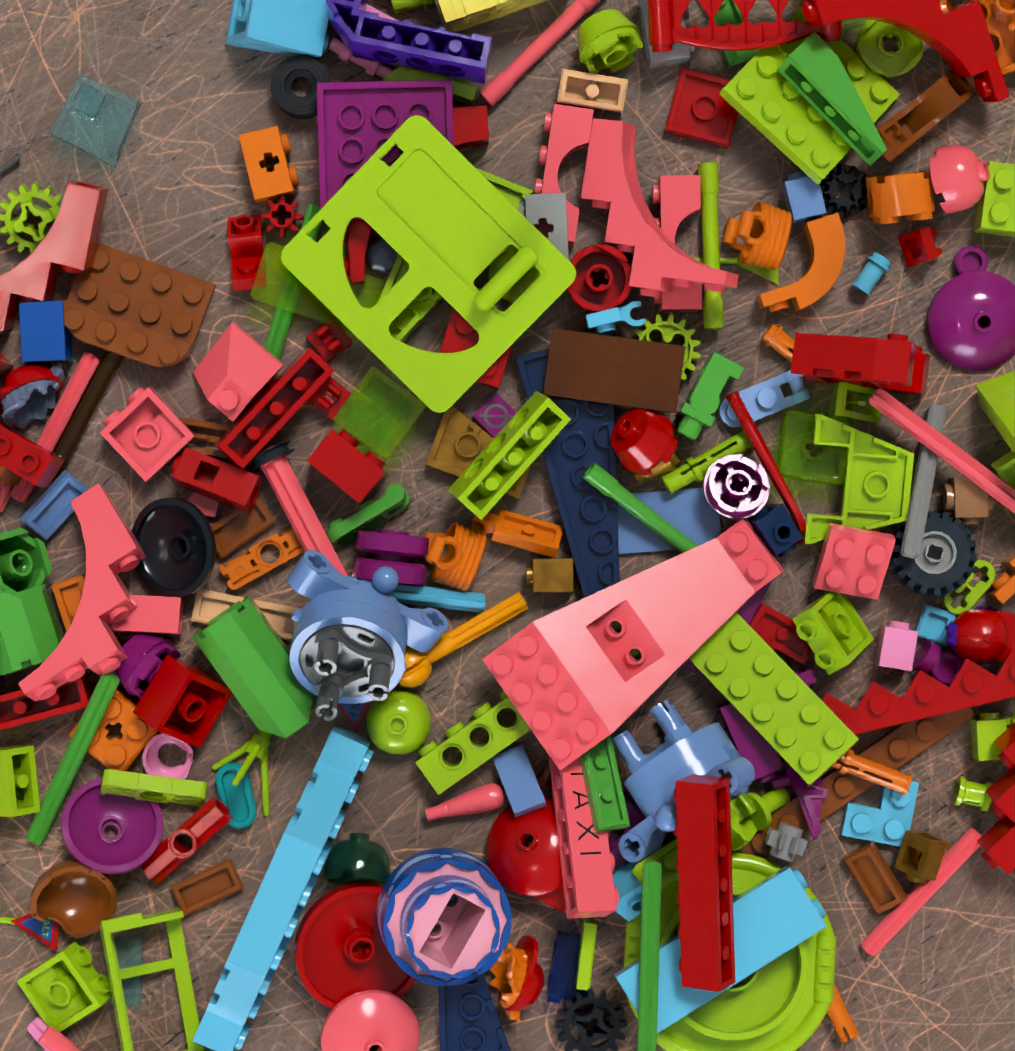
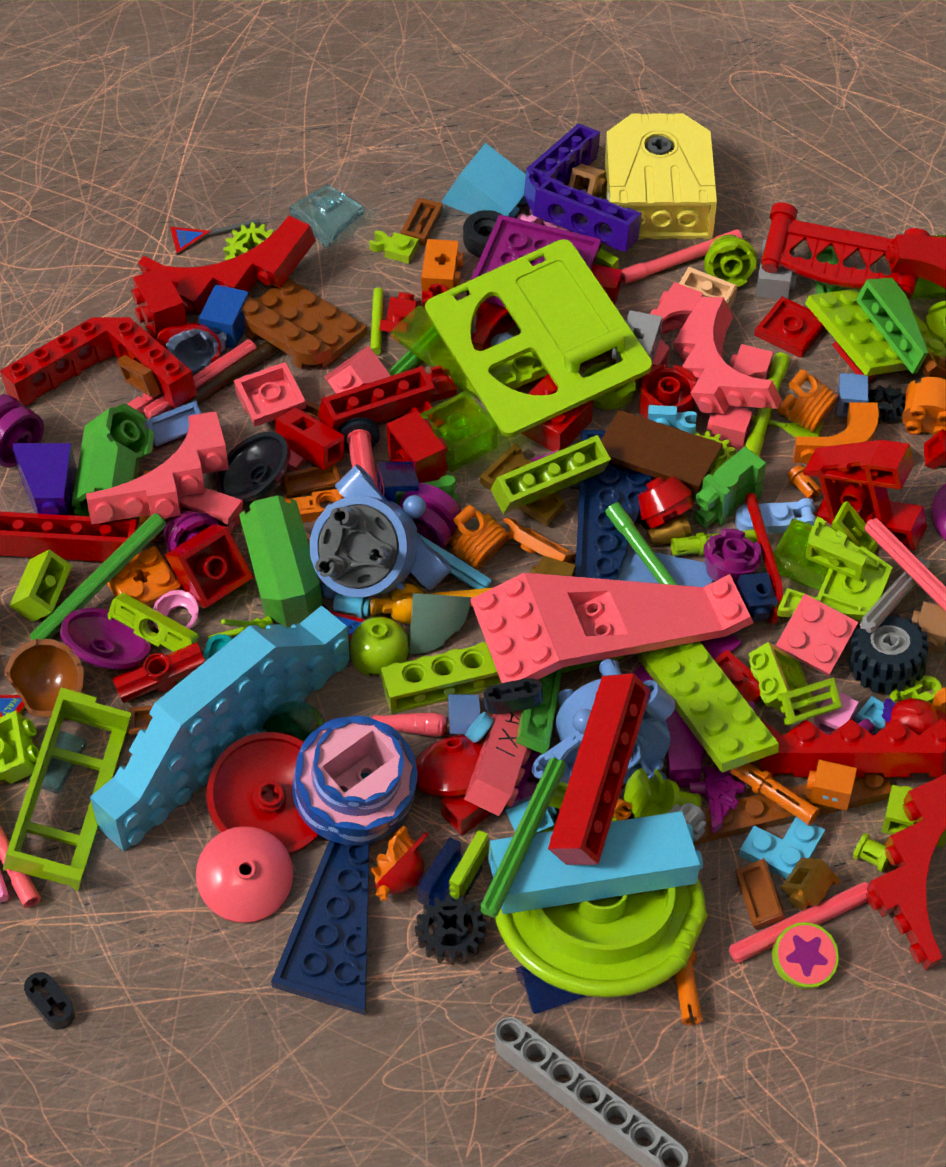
camera: 20 degrees right, 35 degrees down
(203, 140) = (397, 247): none -> lime plate
(214, 117) = (430, 205): none -> dark orange tile
(221, 265) = (377, 315): none -> lime bar
(348, 536) = (396, 477): none -> clear blue panel
(447, 676) = (435, 620): none -> sand green brick
(548, 814) = (479, 727): none -> medium azure tile
(570, 773) = (513, 696): none -> black beam
(854, 469) = (836, 557): none -> lime plate
(869, 663) = (788, 707): none -> lime tile
(917, 745) = (831, 784): none -> orange brick
(937, 932) = (805, 955): none -> tile

